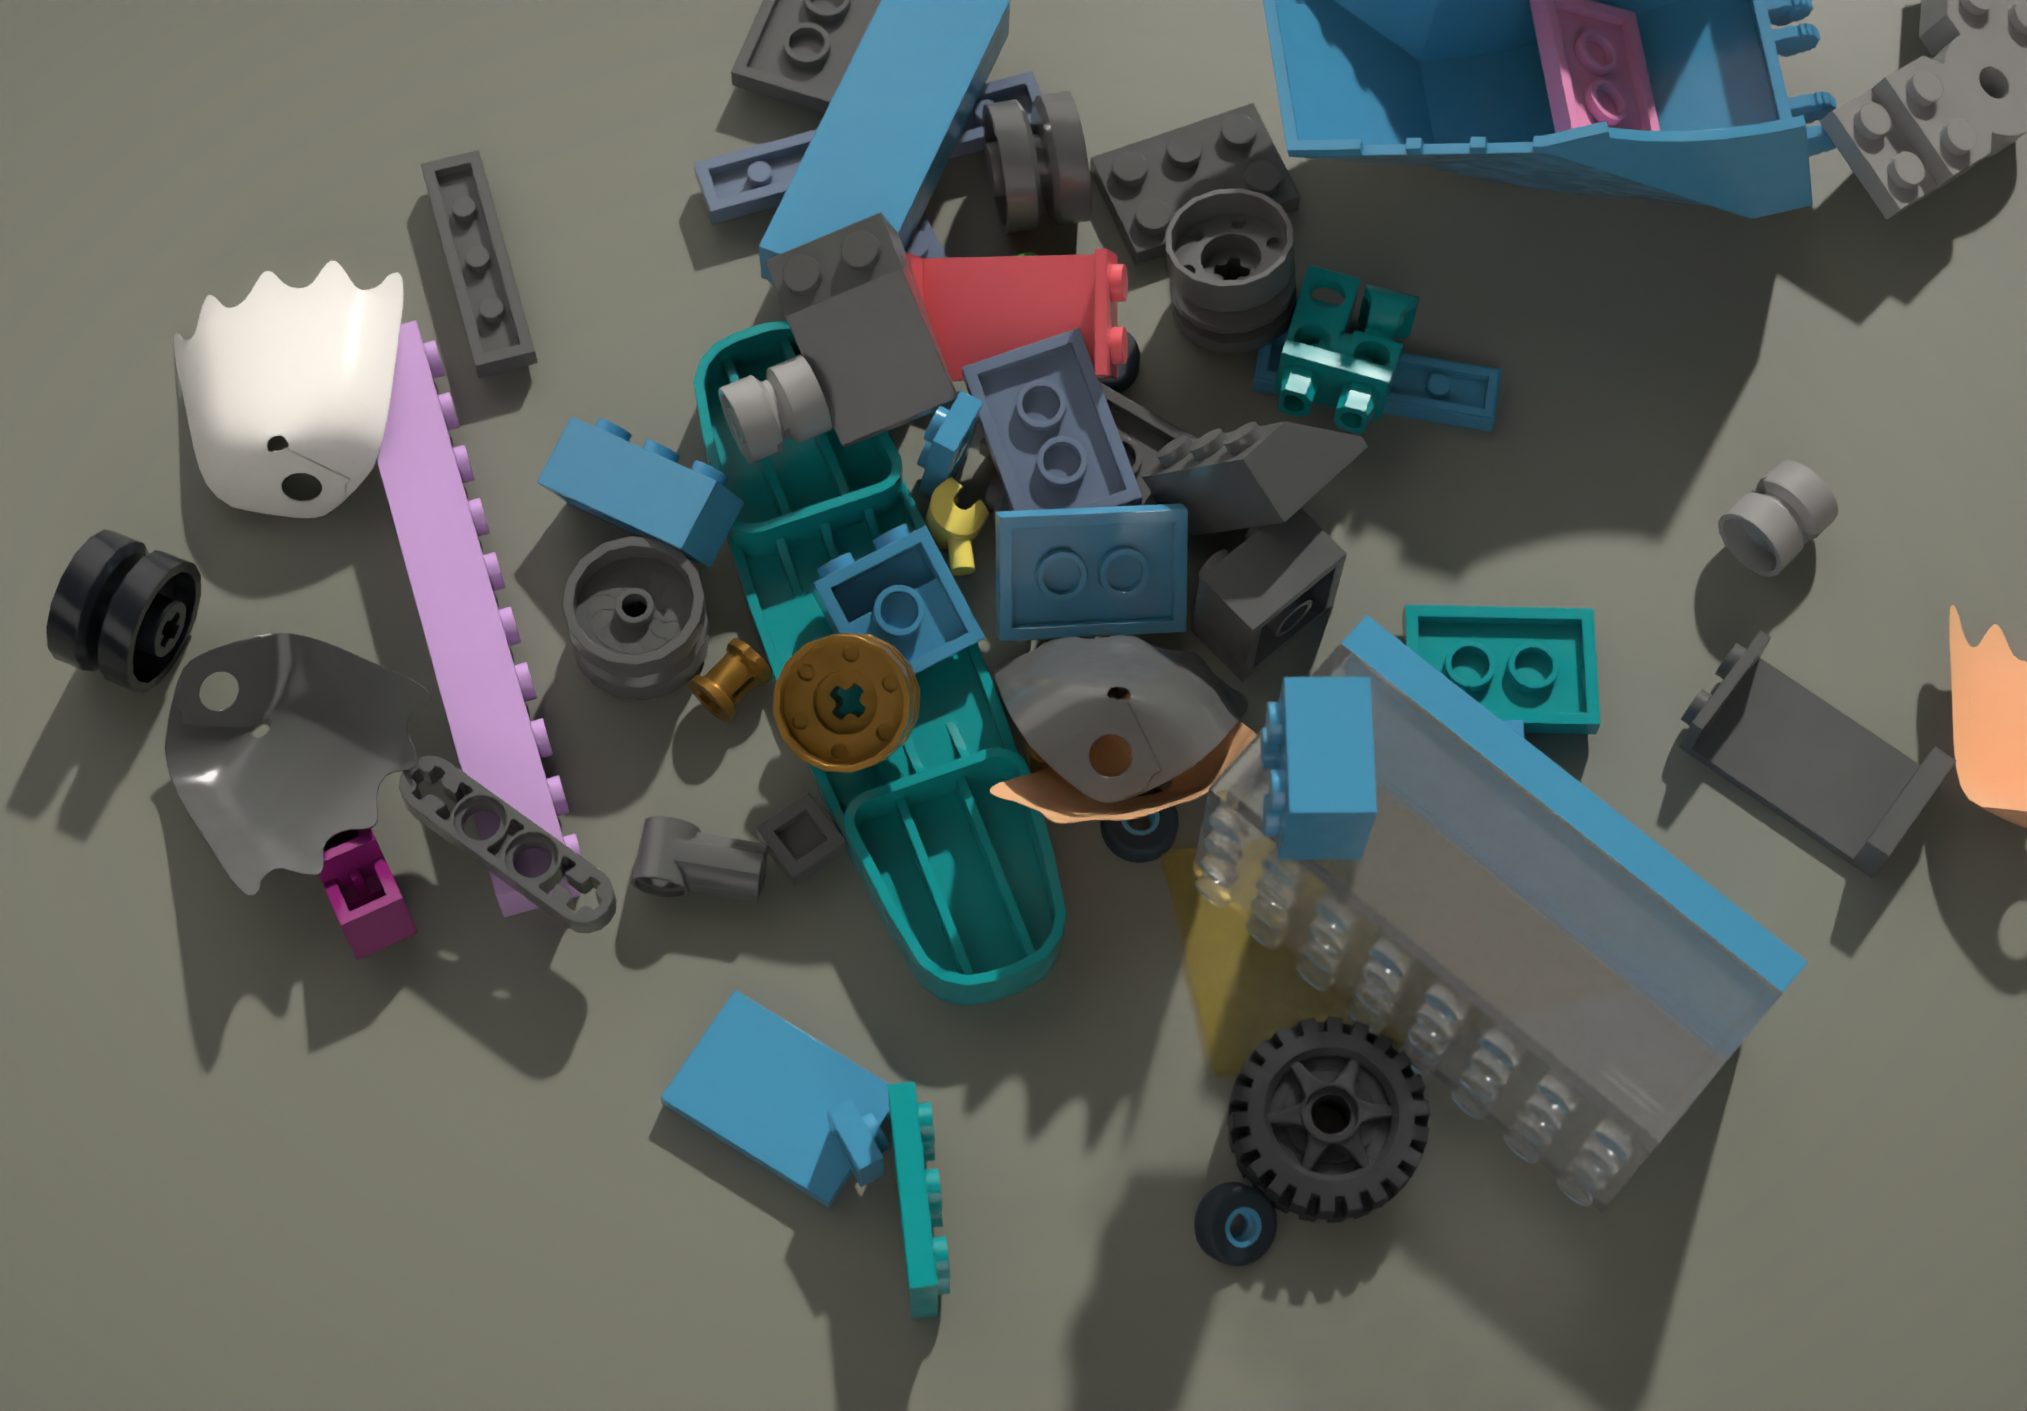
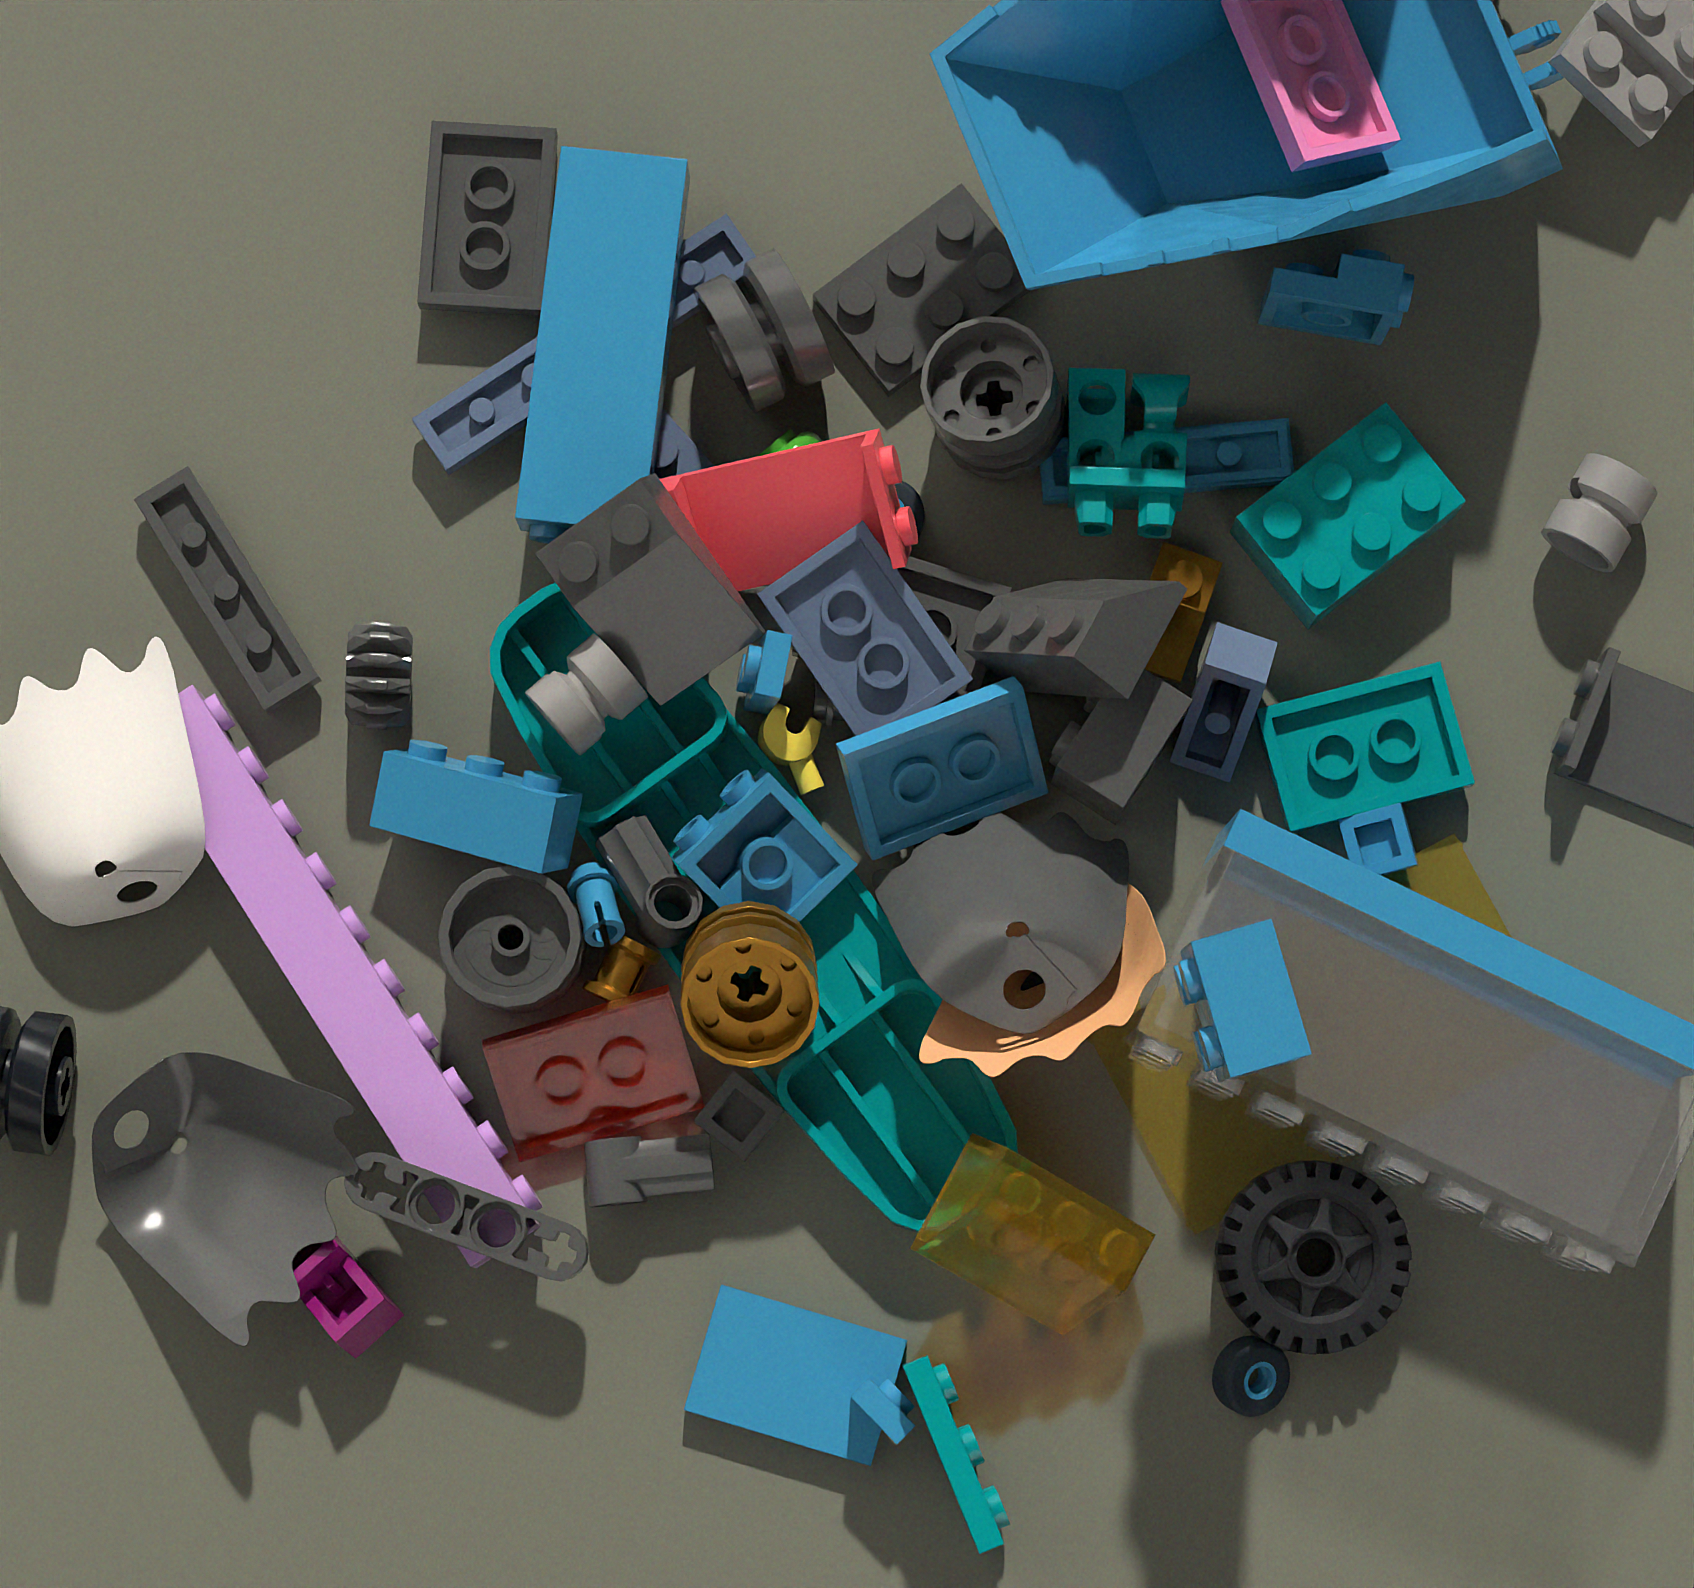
camera: 10 degrees left, 15 degrees up
(589, 360) = (378, 675): none -> dark grey gear
(673, 758) = (593, 1073): none -> clear red tile
(726, 601) = (593, 891): none -> dark azure pin
(782, 599) = (648, 877): none -> dark grey piece
(1052, 1013) = (1030, 1237): none -> clear yellow slope
(1356, 500) = (1177, 642): none -> pearl gold slope
(1377, 582) = (1224, 702): none -> sand blue slope
(1535, 460) = (1346, 515): none -> teal brick
(1574, 274) = (1354, 304): none -> dark azure plate

